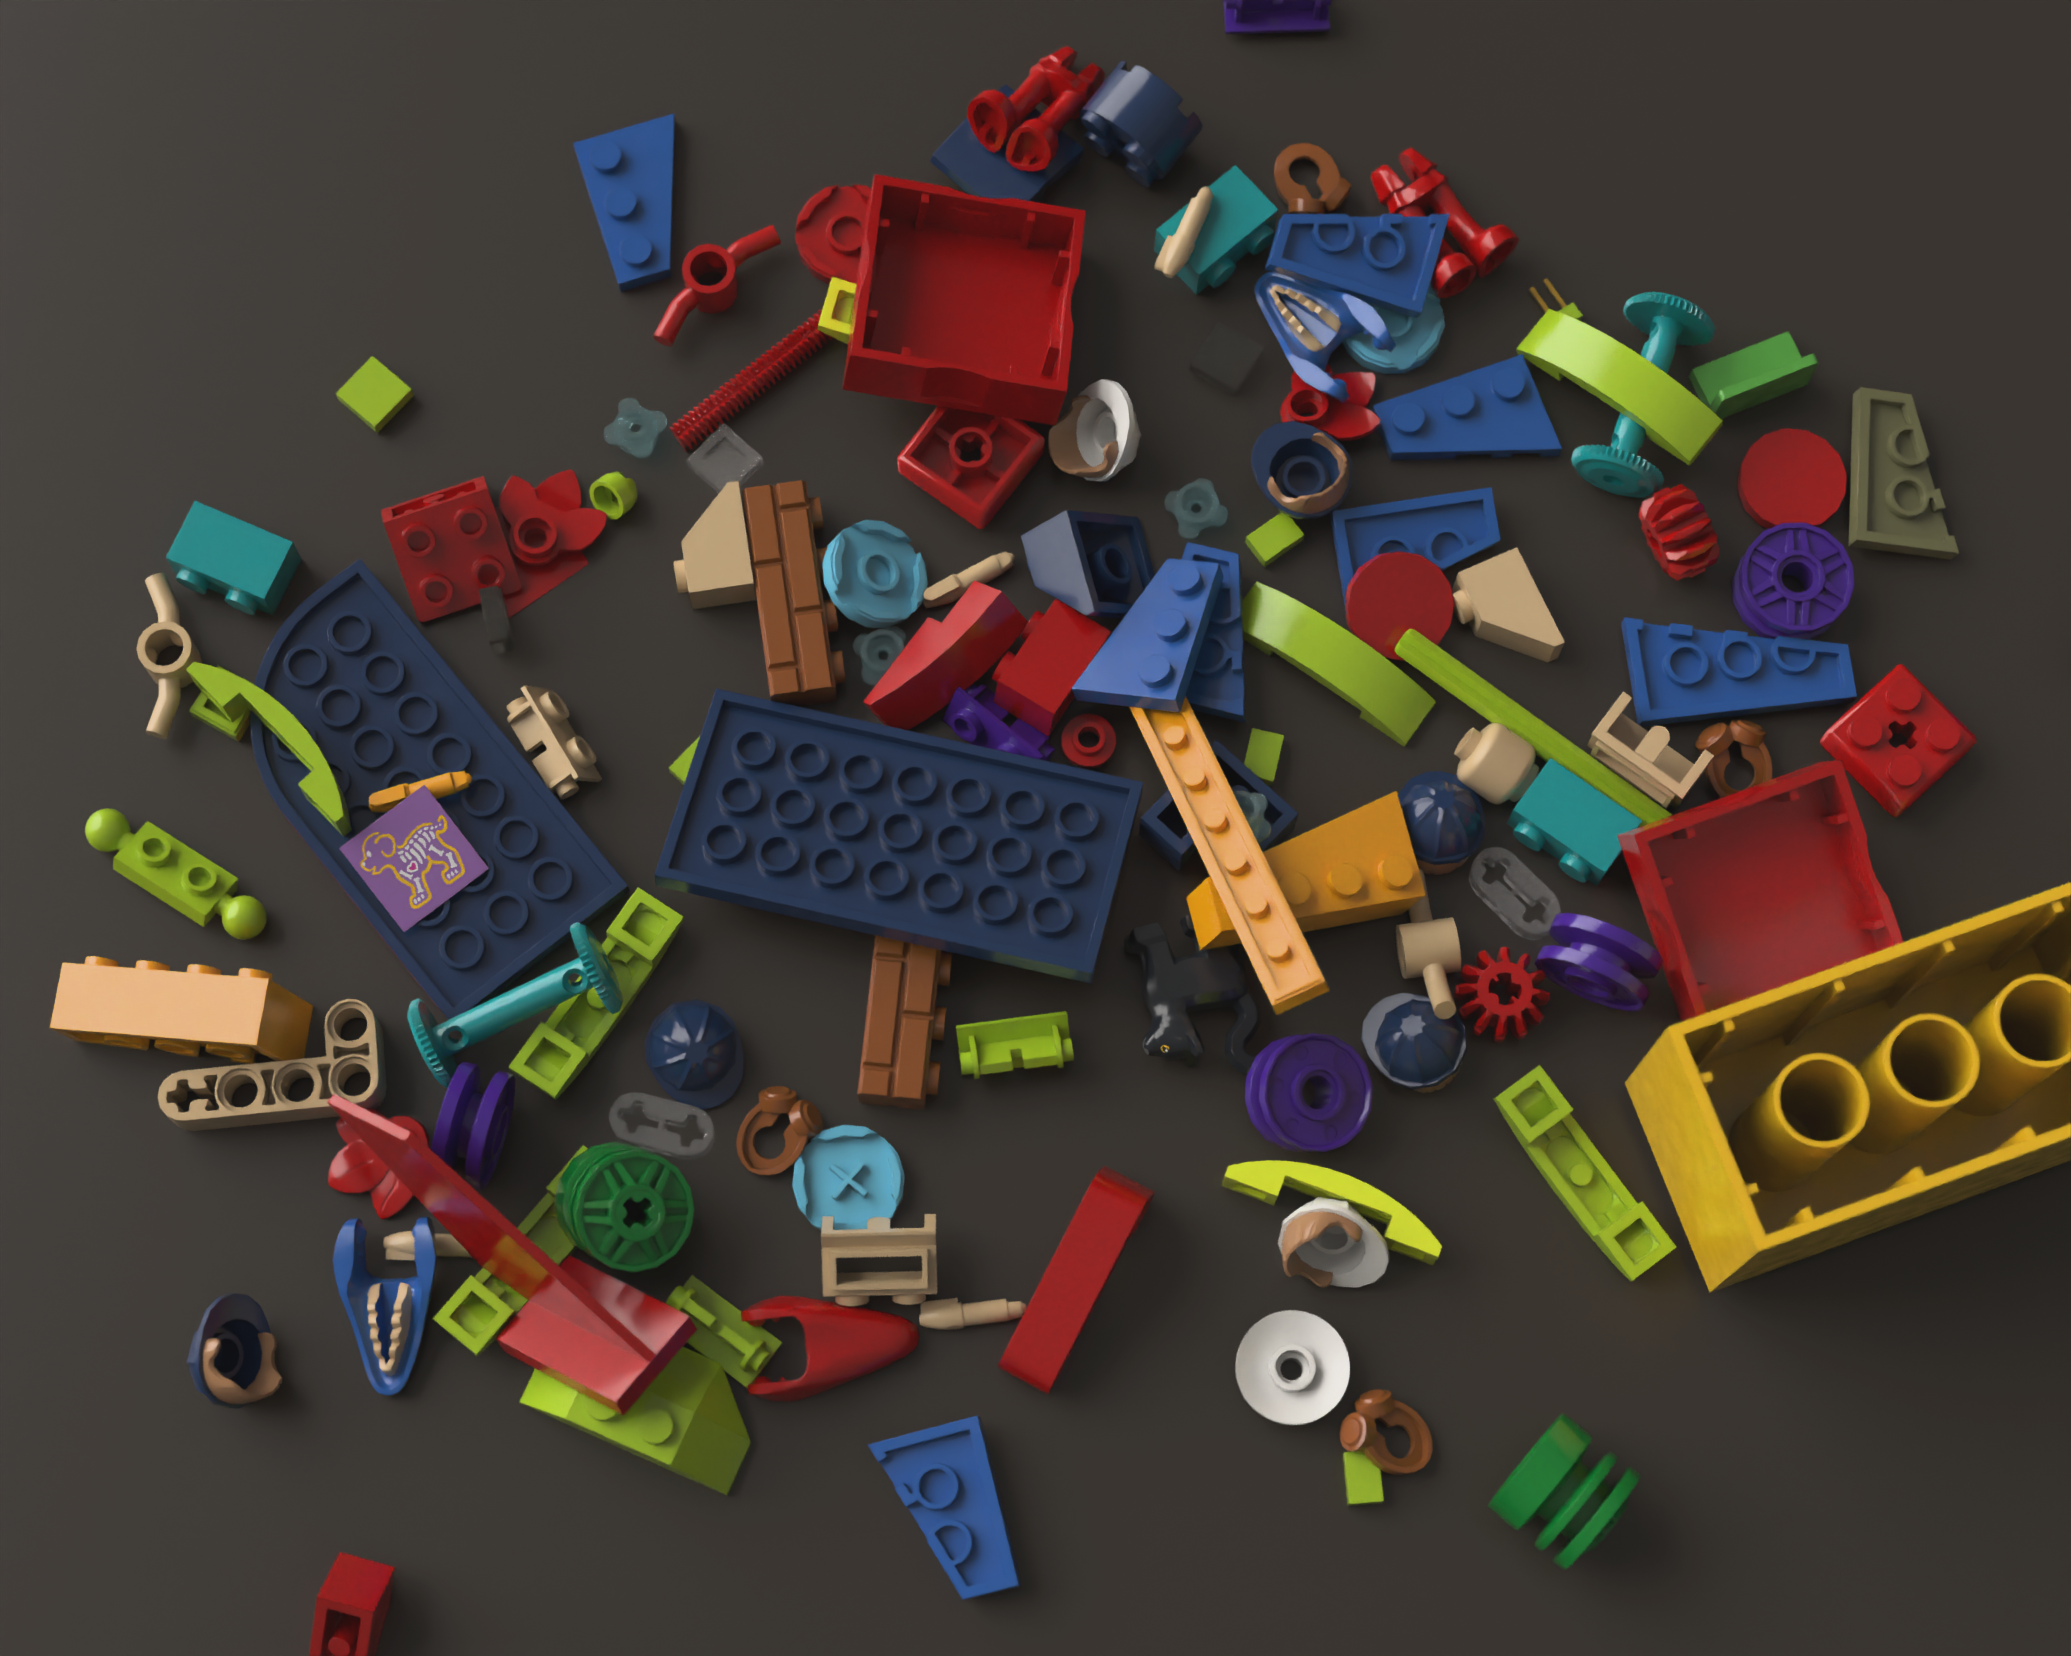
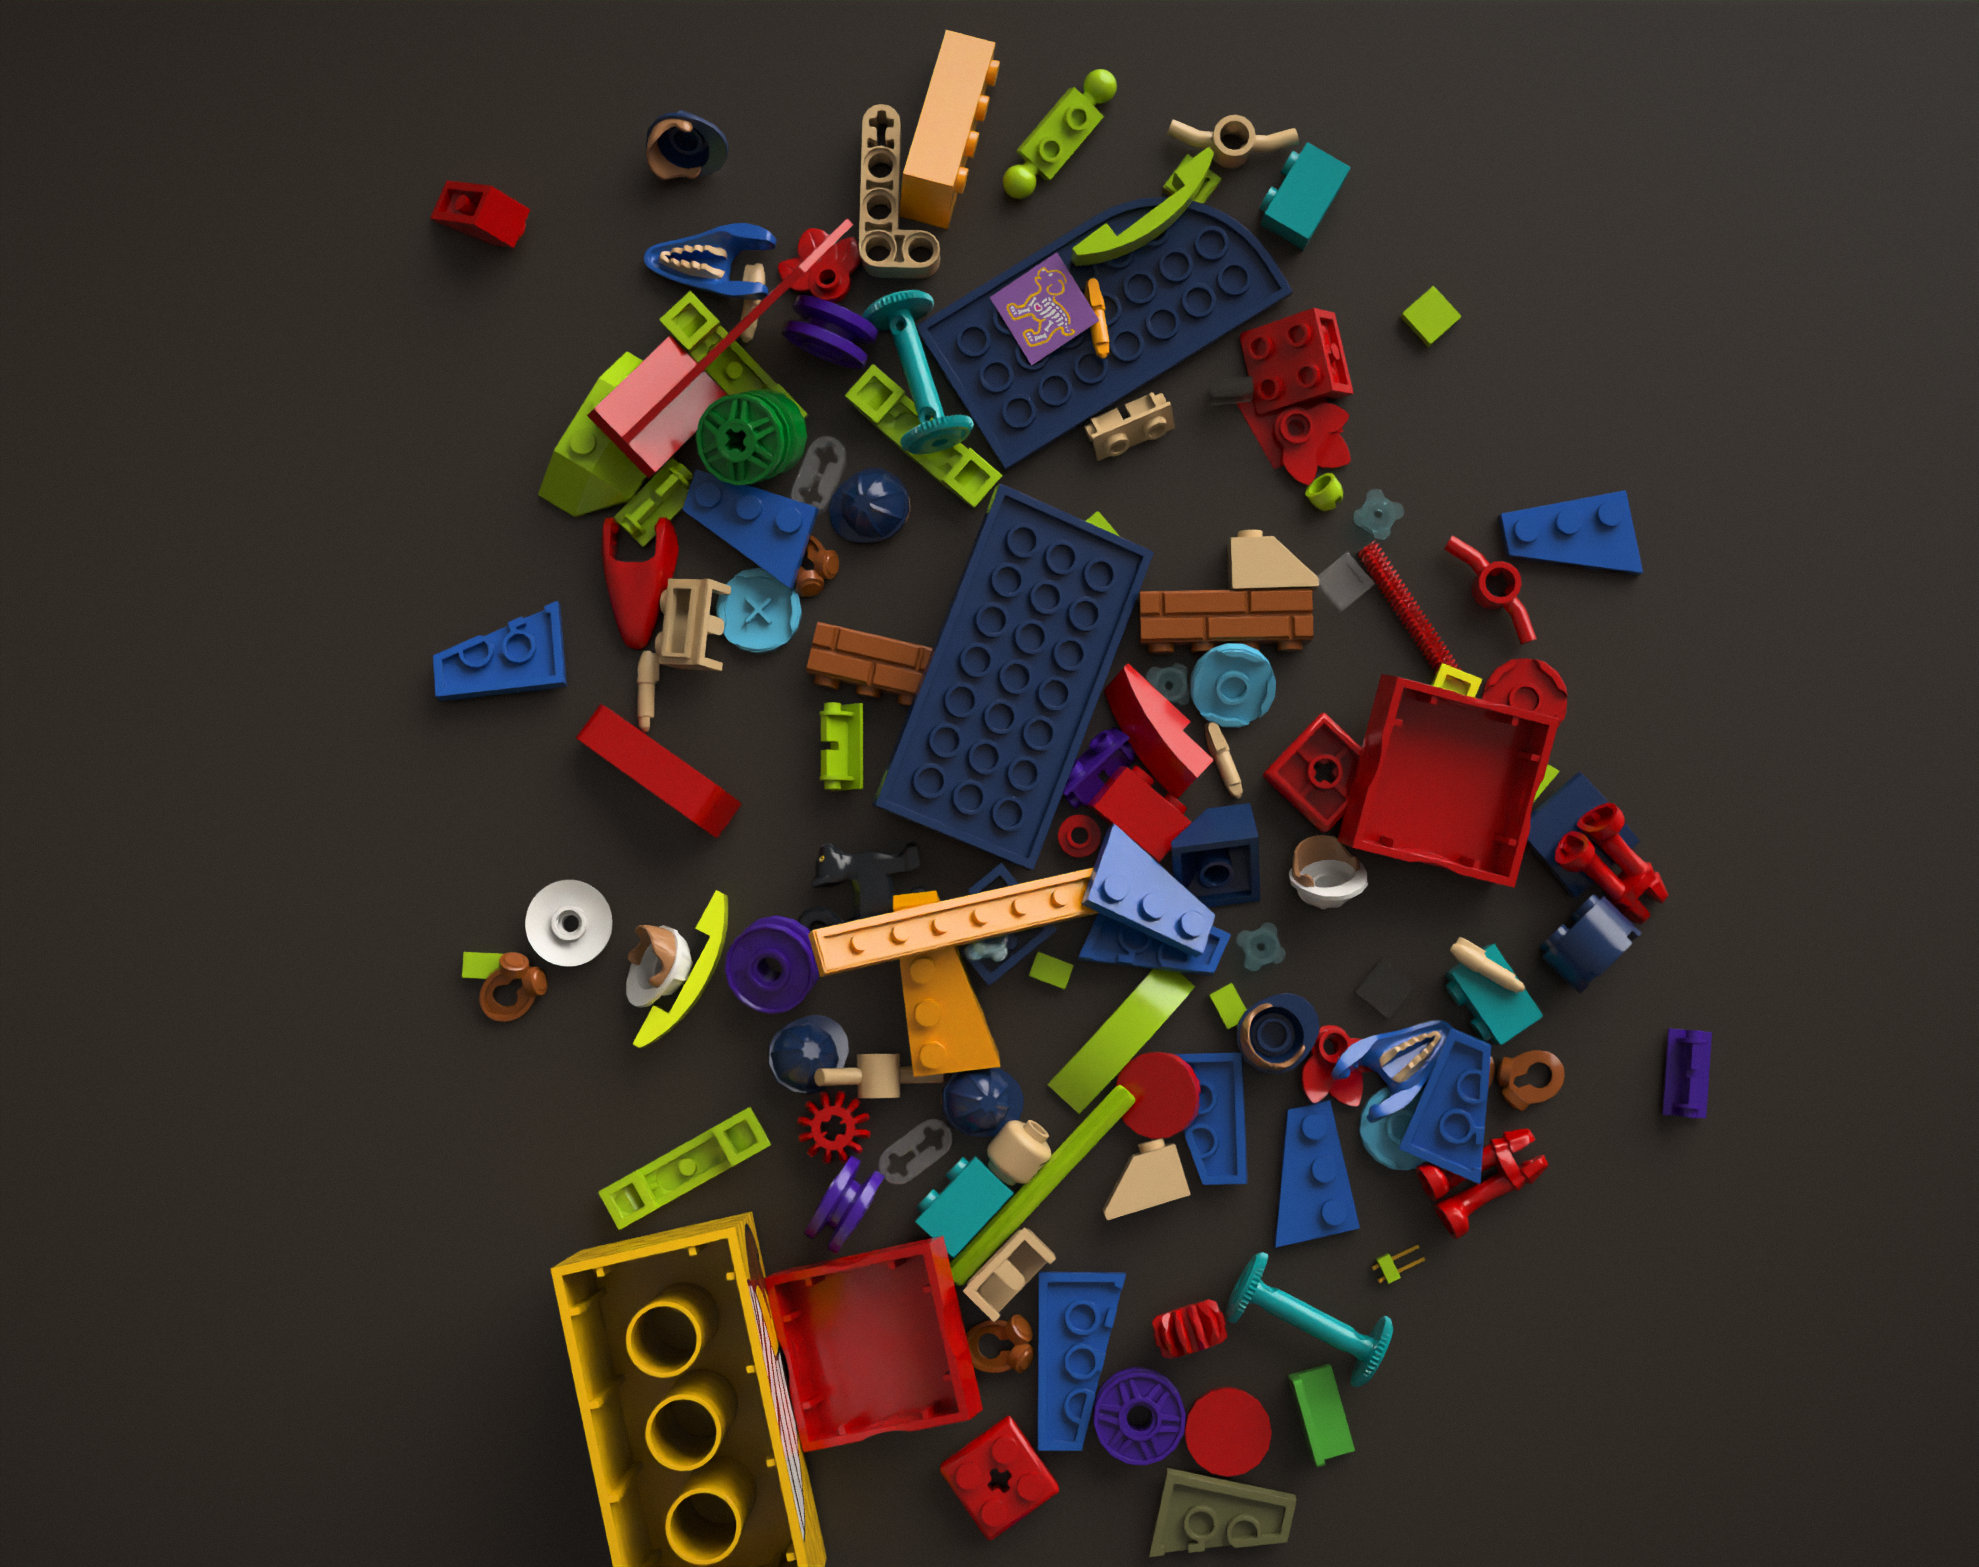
camera: 95 degrees right, 10 degrees up
(735, 1192) = (755, 522): none -> blue wing
(1565, 1492) = (434, 1118): green wheel -> none
(1624, 381) = (1319, 1302): lime slope -> none

